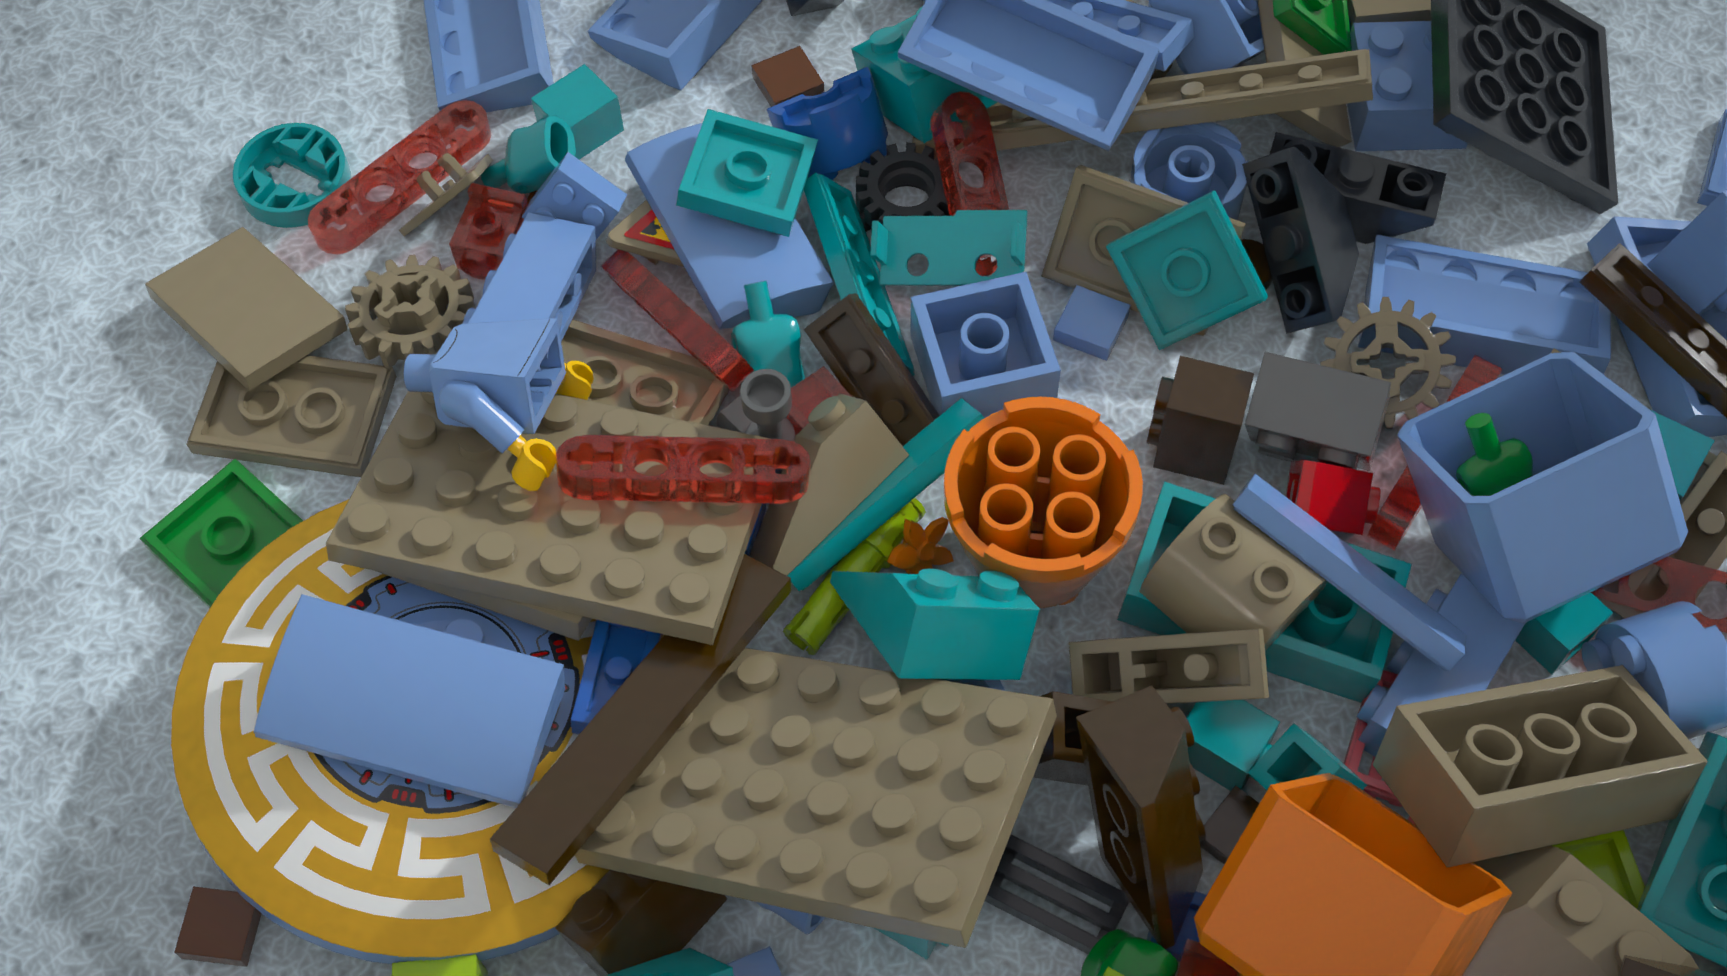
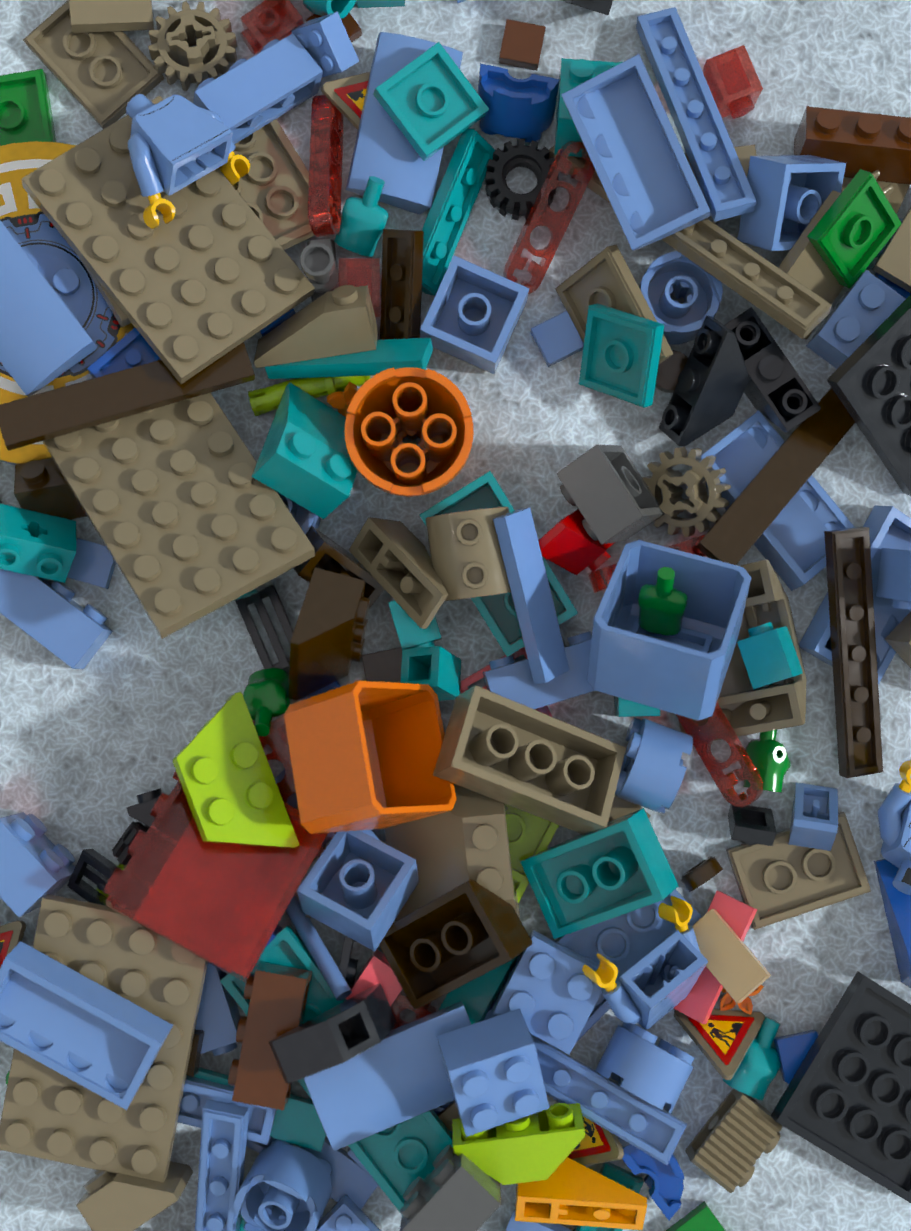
camera: 35 degrees right, 25 degrees up
(683, 477) = (233, 278): clear red beam -> none
(950, 246) = (510, 236): teal piece -> none
(1199, 419) = (548, 445): dark brown brick -> none
(1472, 266) = (777, 482): none -> dark brown tile

